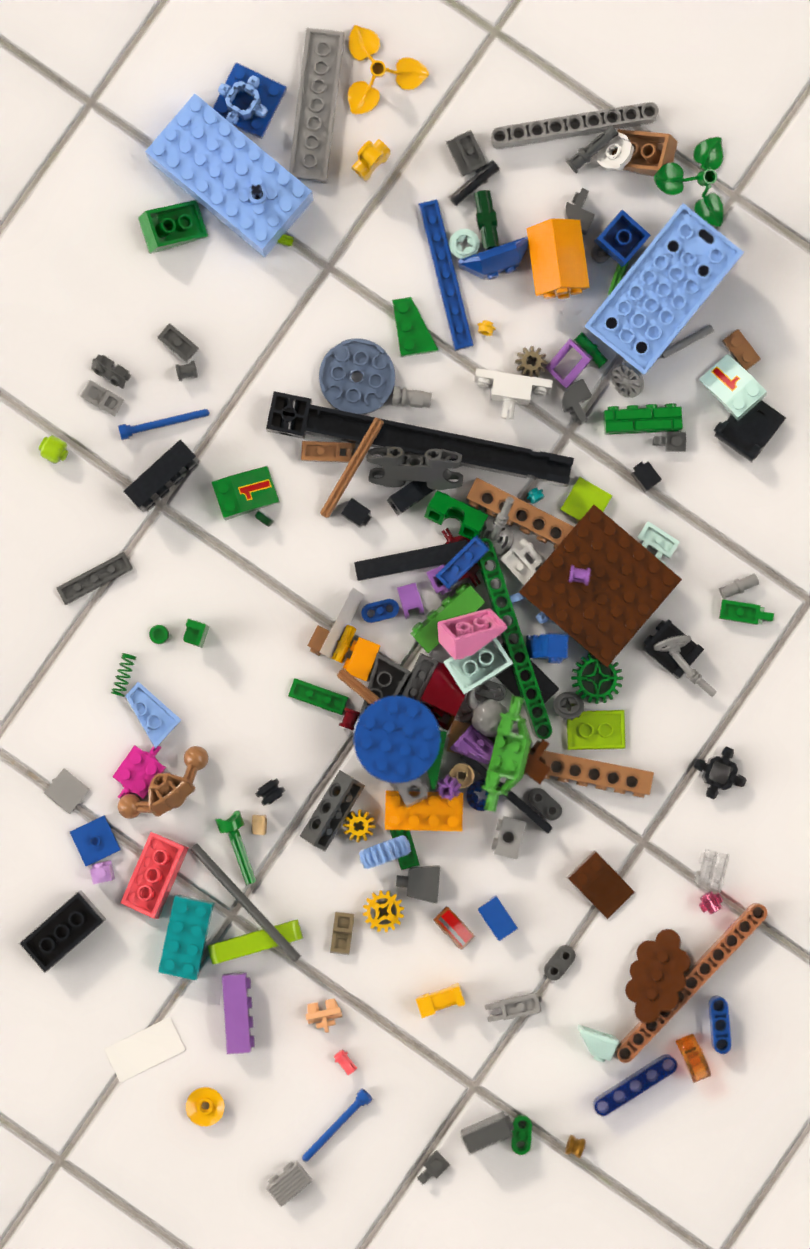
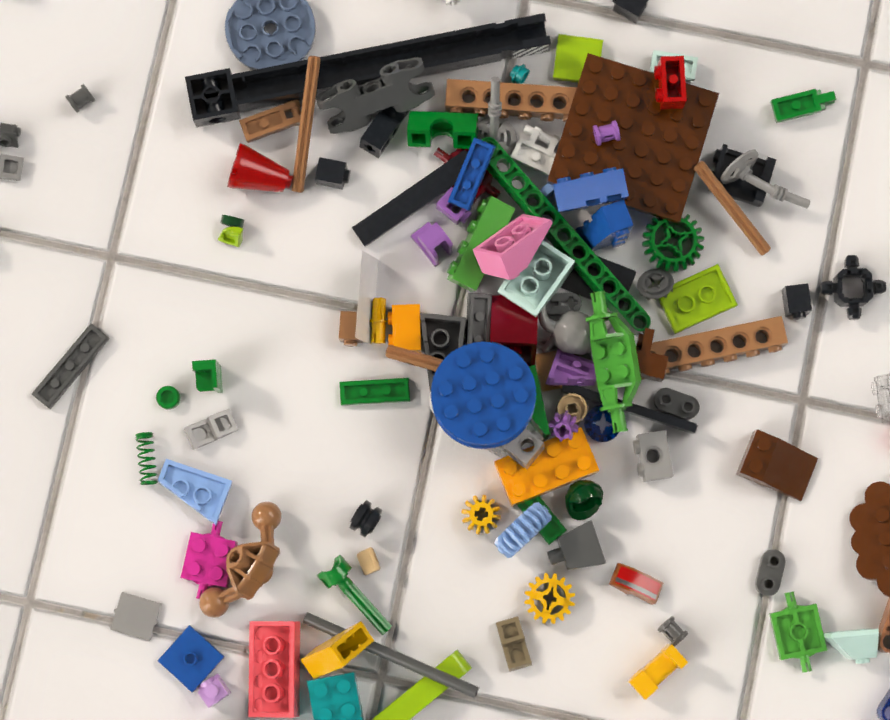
camera: 25 degrees left, 5 degrees down
(127, 431) = (41, 190): blue piece -> none
(161, 476) = (99, 220): black brick -> none
(178, 342) = (58, 72): dark grey plate -> none
(181, 672) = (211, 429): none -> light grey slope
(207, 883) = (337, 651): none -> yellow slope
(245, 492) = (199, 202): green slope -> none
(258, 529) = (232, 236): none -> lime tile
(299, 488) = (257, 172): none -> red cone
(332, 810) = (444, 509): dark grey brick -> none
(349, 719) = (420, 400): dark red bush -> none
(380, 610) = (402, 268): blue plate -> none
(411, 397) = (338, 26): light grey axle -> none
(441, 847) = (583, 499): none -> dark green piece
(465, 975) = (672, 631): none -> dark grey bush
(497, 918) = (680, 551): blue panel -> none
(515, 1007) = (743, 643): light grey hinge -> none
(547, 615) = (590, 189): none -> wedge
(560, 1016) = (798, 632): none -> bright green plate
(646, 558) = (672, 82): none -> red brick
(653, 672) = (732, 208): none -> medium nougat axle
(671, 765) = (796, 301): none -> black brick
(739, 586) = (782, 79): light grey pin -> none

